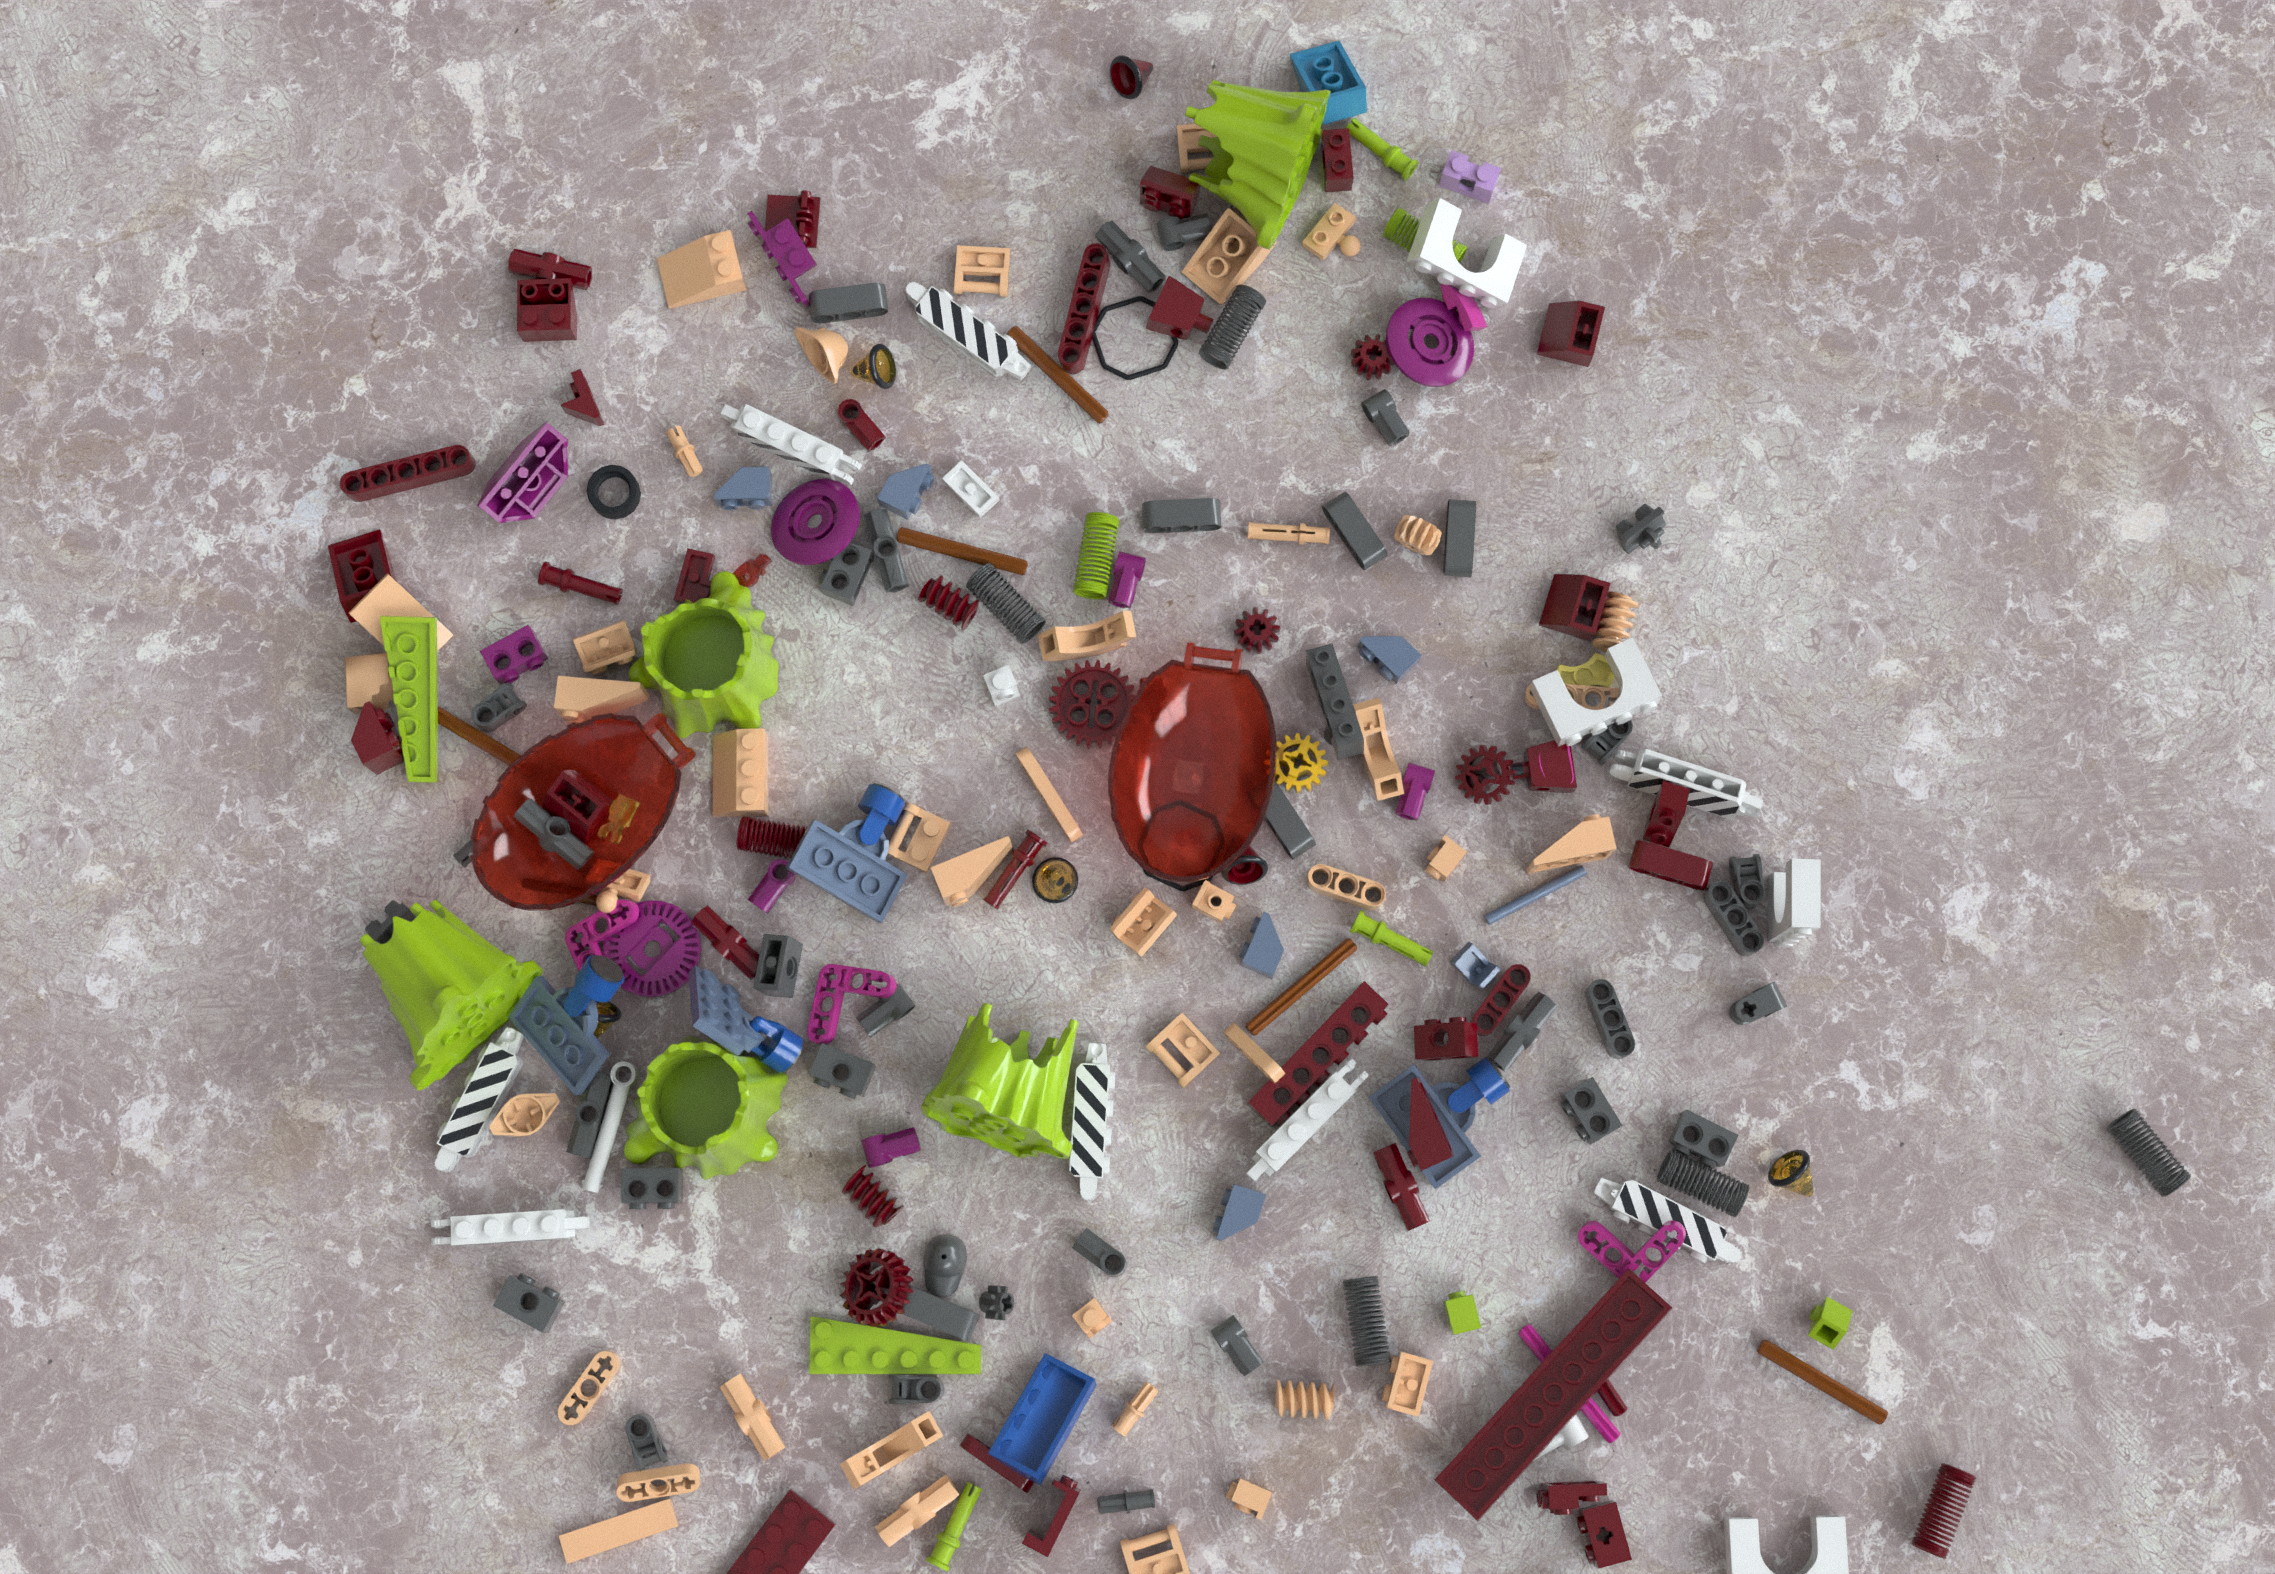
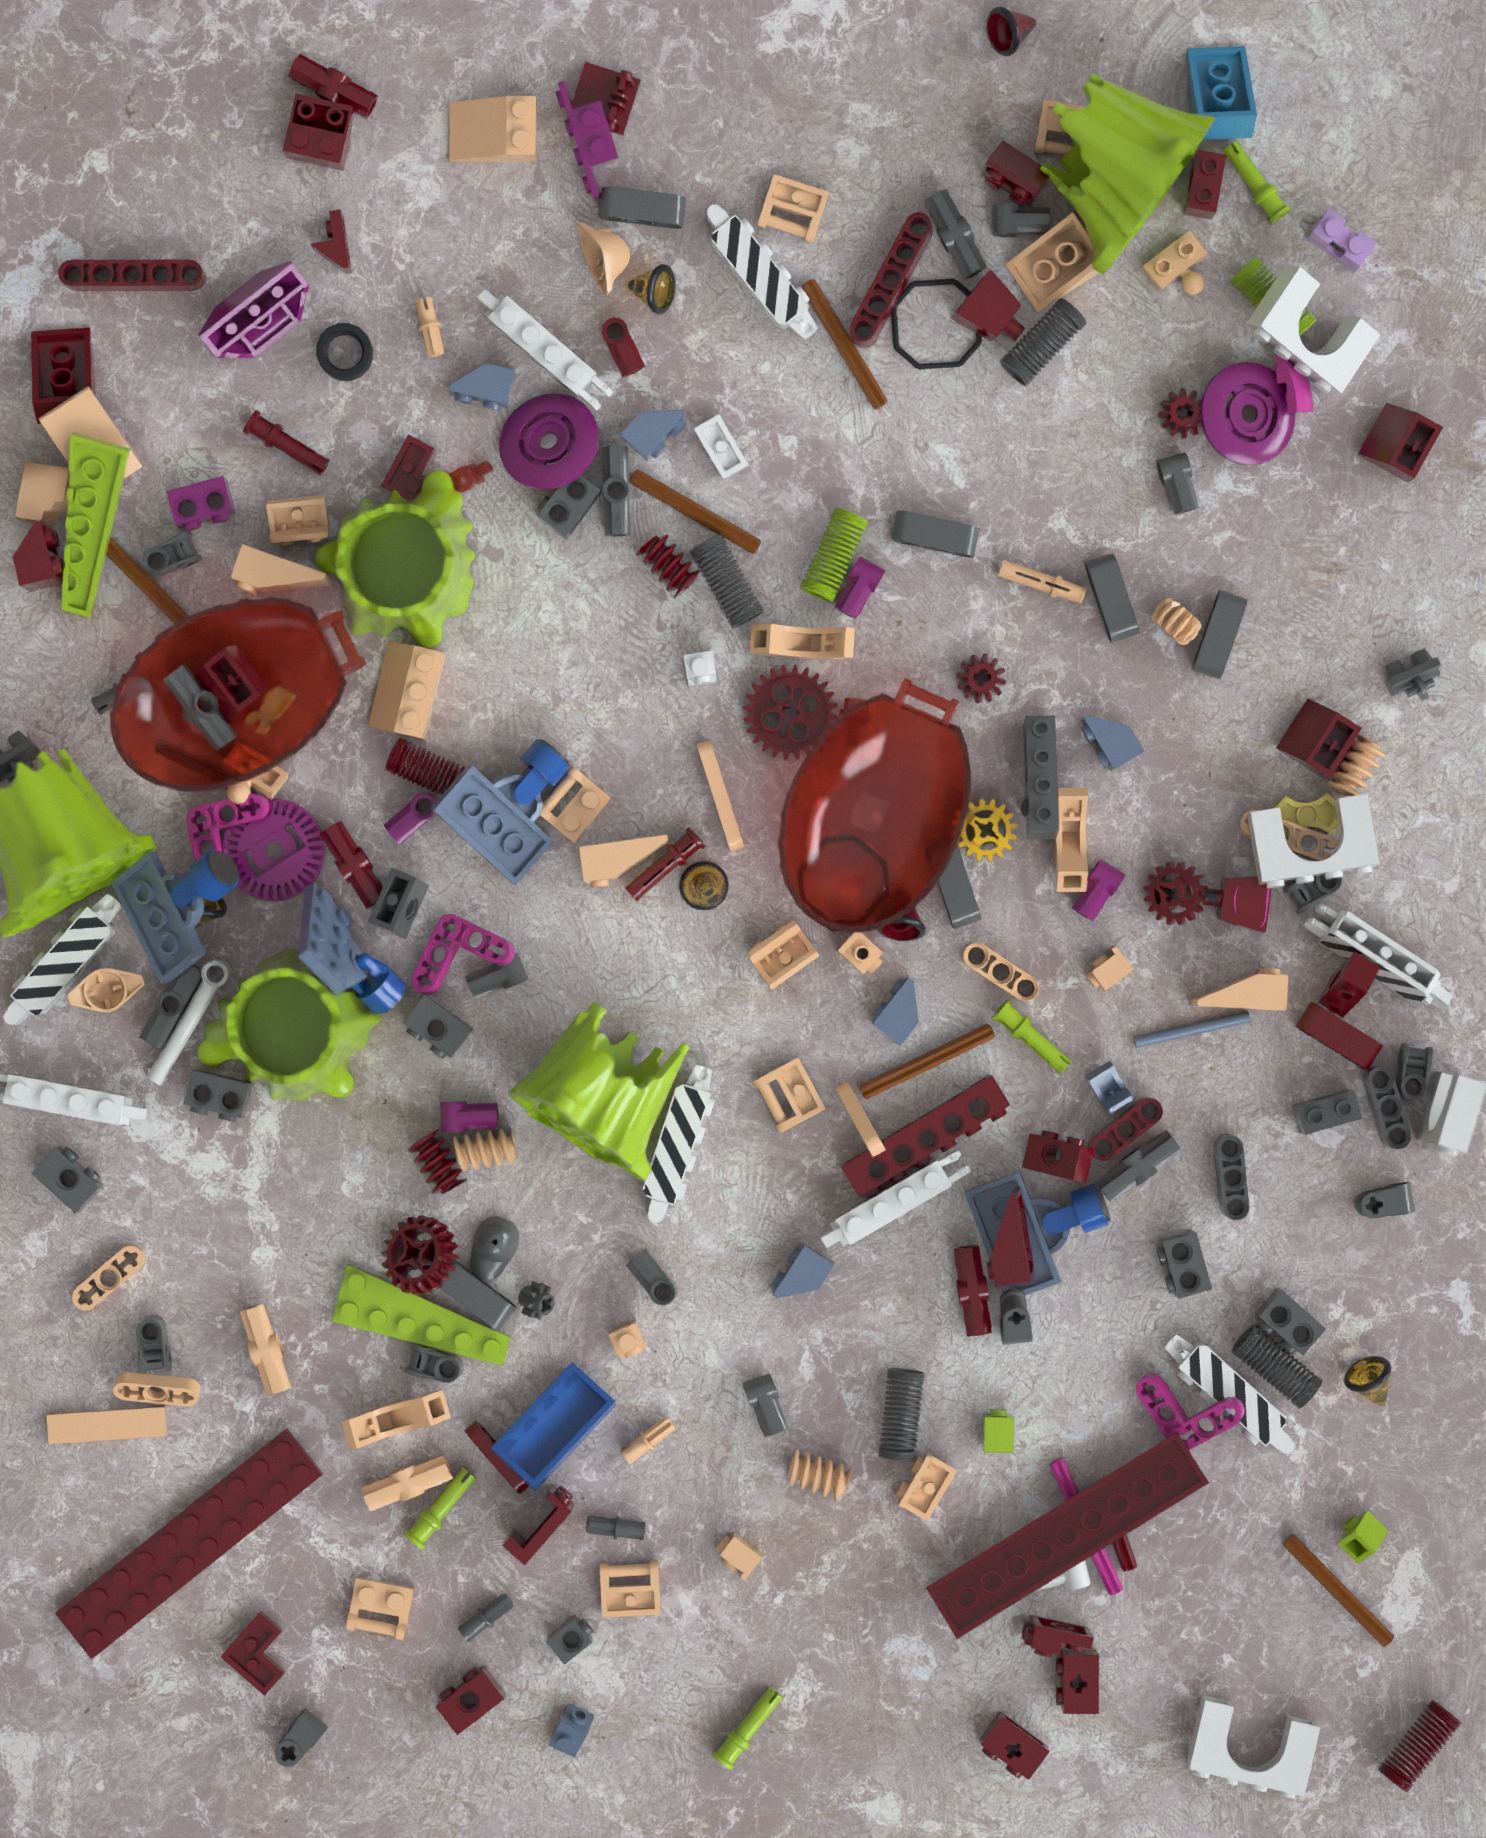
camera: 15 degrees right, 10 degrees up
(914, 1173) = (485, 1150): none -> light nougat piece
(1447, 1201) = (1015, 1318): none -> dark grey piece
(1679, 936) = (1326, 1111): none -> dark grey brick

